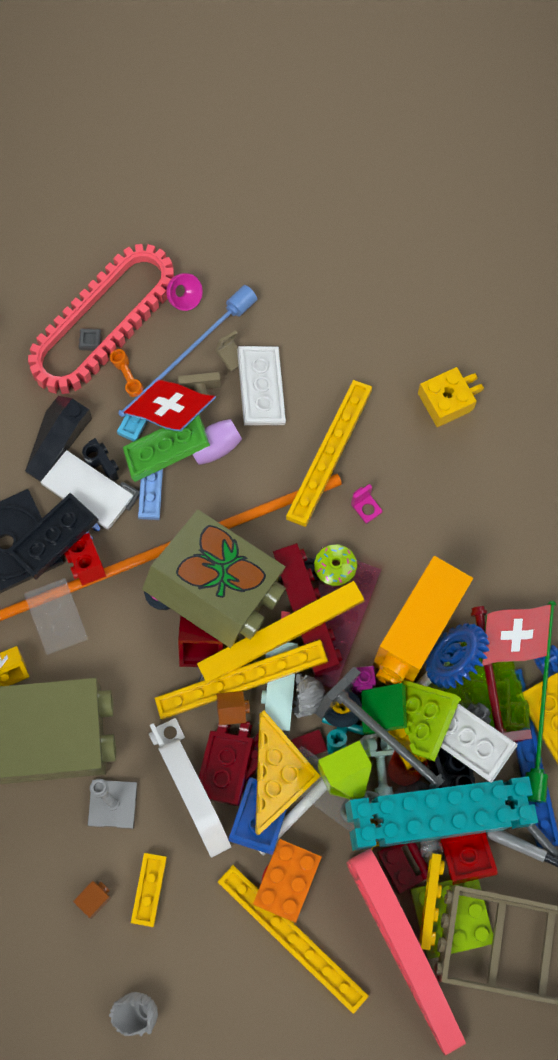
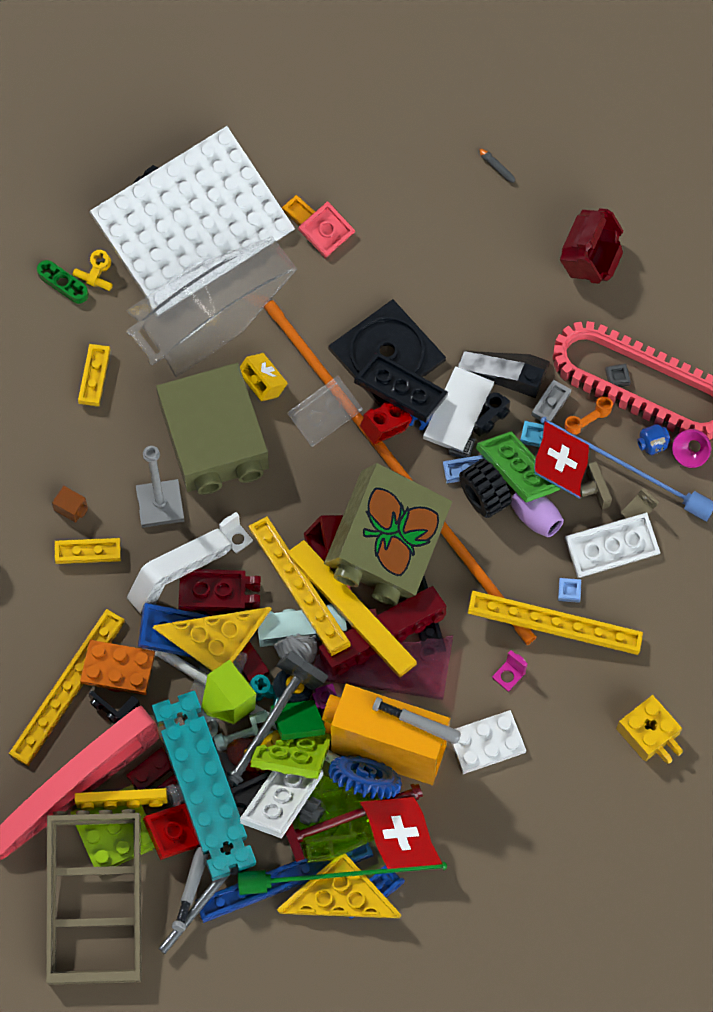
camera: 80 degrees right, 5 degrees down
(102, 403) = (551, 401): none -> light grey plate
(165, 323) = (654, 439): none -> blue head
(182, 480) = (485, 488): none -> black tyre
(232, 708) = (269, 582): dark orange brick -> none
(295, 434) = (569, 590): none -> light blue tile
(333, 574) = (437, 661): lime dish -> none
(334, 878) = (113, 715): none -> black bracket
(428, 537) = (488, 742): none -> white plate
(440, 576) = (428, 725): none -> light grey piece

